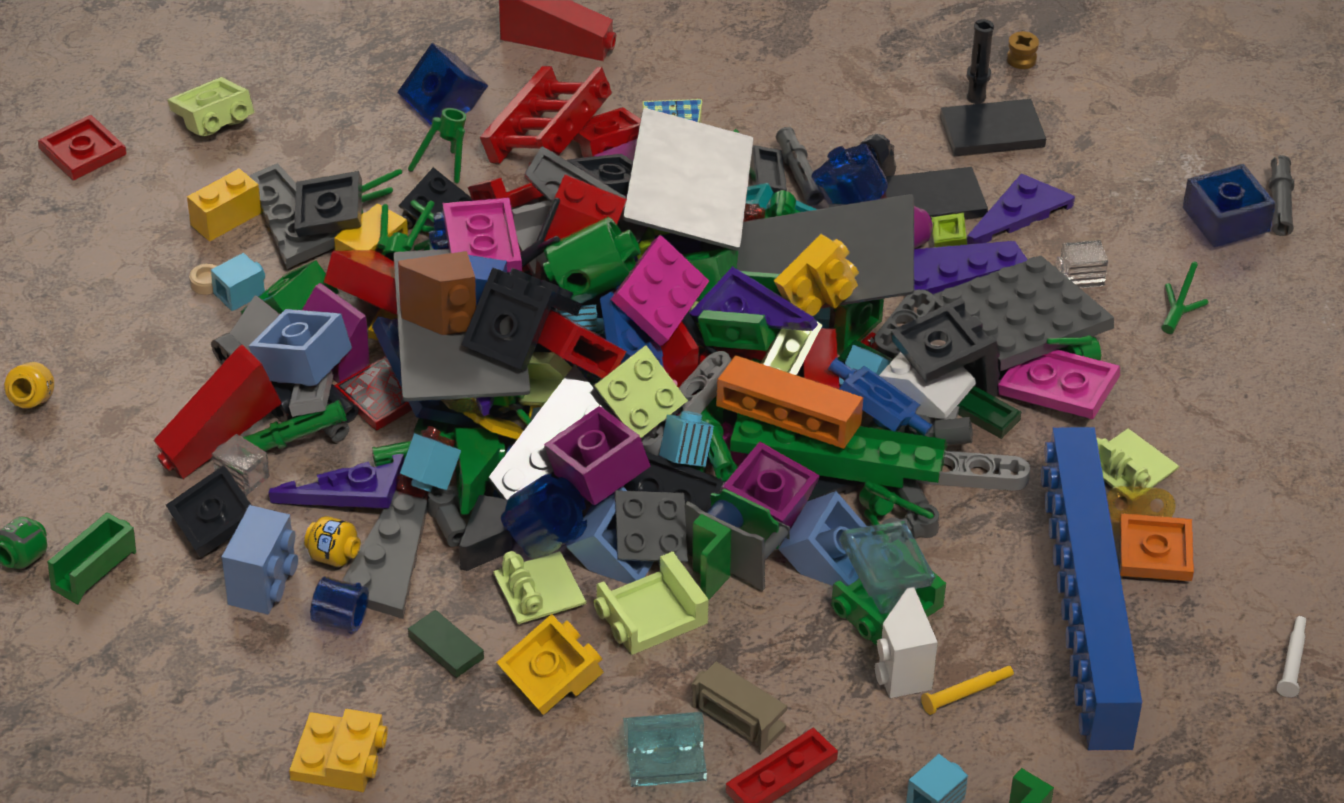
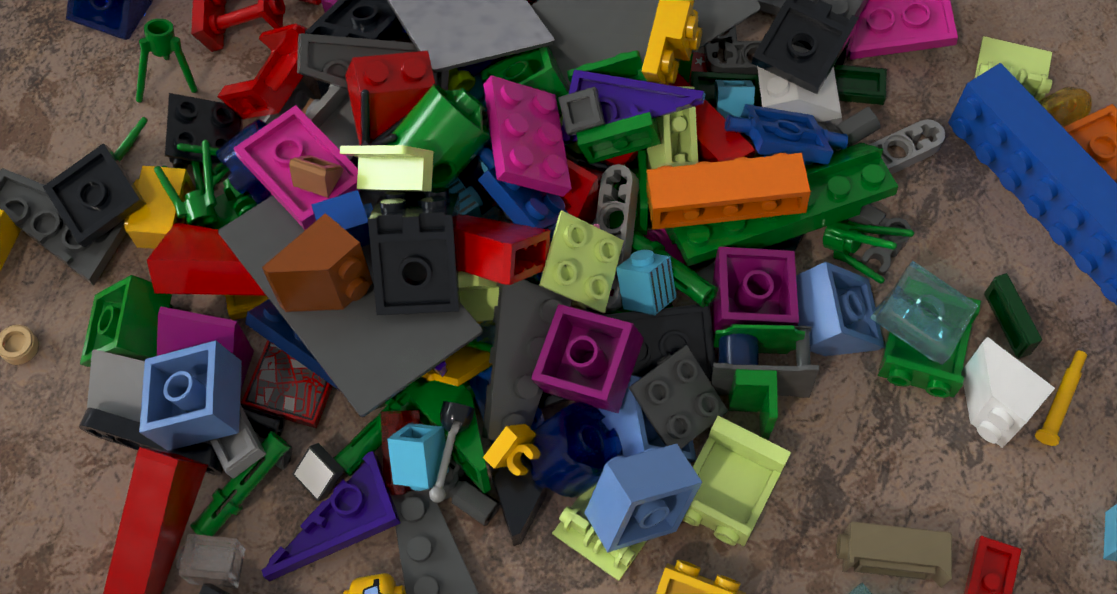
camera: 30 degrees left, 20 degrees up
(238, 281) = (56, 332): medium azure brick -> none
(355, 448) = (318, 472): none -> tile
(472, 447) = (455, 419): none -> hinge
(484, 240) = (314, 174): none -> medium nougat slope
(498, 483) = (509, 447): none -> yellow tile
(540, 253) = (392, 167): none -> yellowish green panel
(568, 560) = (642, 496): none -> medium blue brick
(717, 295) = (581, 110): none -> dark grey tile
(970, 613) = (1012, 316): none -> dark green tile

